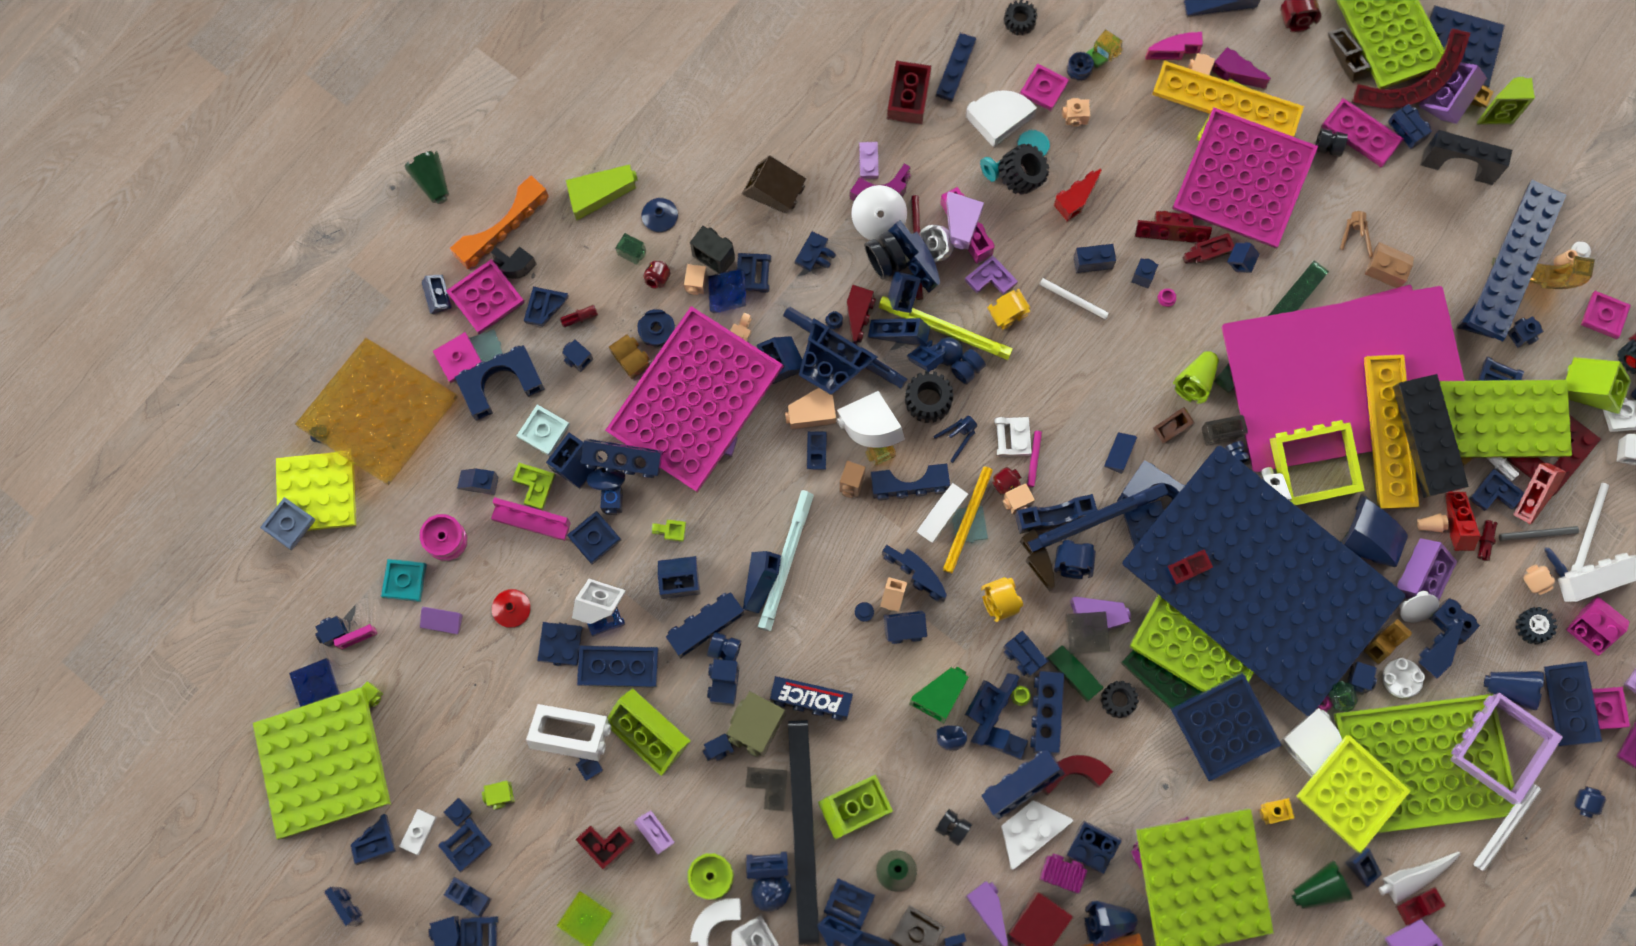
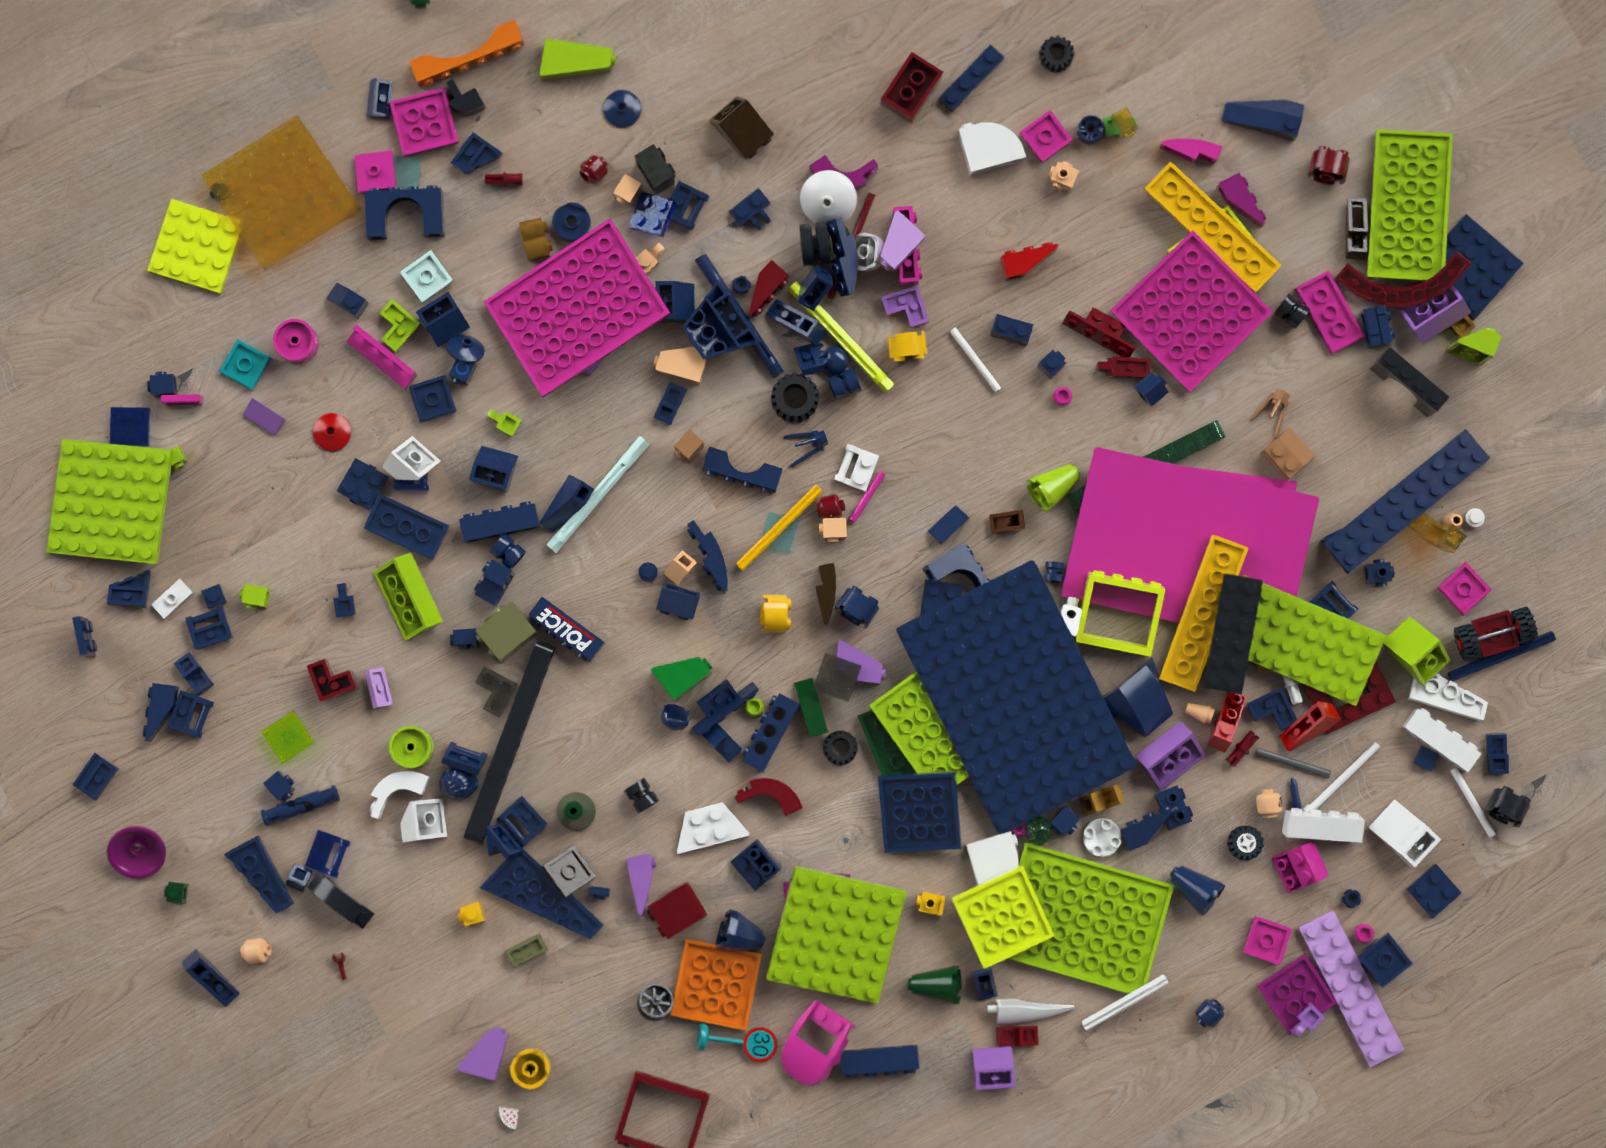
camera: 15 degrees right, 10 degrees up
(287, 523) = (159, 267): sand blue tile -> none
(566, 746) = (325, 576): white piece -> none
(576, 355) = (486, 217): dark blue brick -> none
(631, 249) = (580, 133): clear green brick -> none
(651, 456) = (497, 336): dark blue brick -> none
(855, 806) = (564, 741): lime slope -> none
(868, 160) = (844, 138): lavender plate -> none
(870, 422) = (729, 399): white brick -> none
(881, 454) = (727, 429): clear yellow brick -> none
(942, 513) = (758, 512): white slope -> none
(1022, 784) = (718, 784): dark blue brick -> none
(1025, 654) = (774, 672): dark blue brick -> none
(1032, 161) = (997, 214): black tyre -> none
(1034, 137) = (1007, 190): teal piece -> none
(1052, 516) = (860, 558): dark blue arch -> none
(1063, 874) = (719, 876): magenta brick -> none
(1099, 516) = (893, 578): dark blue piece -> none
(1190, 566) = (953, 658): dark red slope -> none
(1202, 63) = (1206, 180): light nougat brick -> none
(1224, 430) = (1051, 546): clear smoke brick -> none
(1419, 607) = (1145, 782): white dish -> none
(1550, 742) = (1176, 961): lavender window -> none
(1573, 703) = (1239, 924): dark blue plate -> none

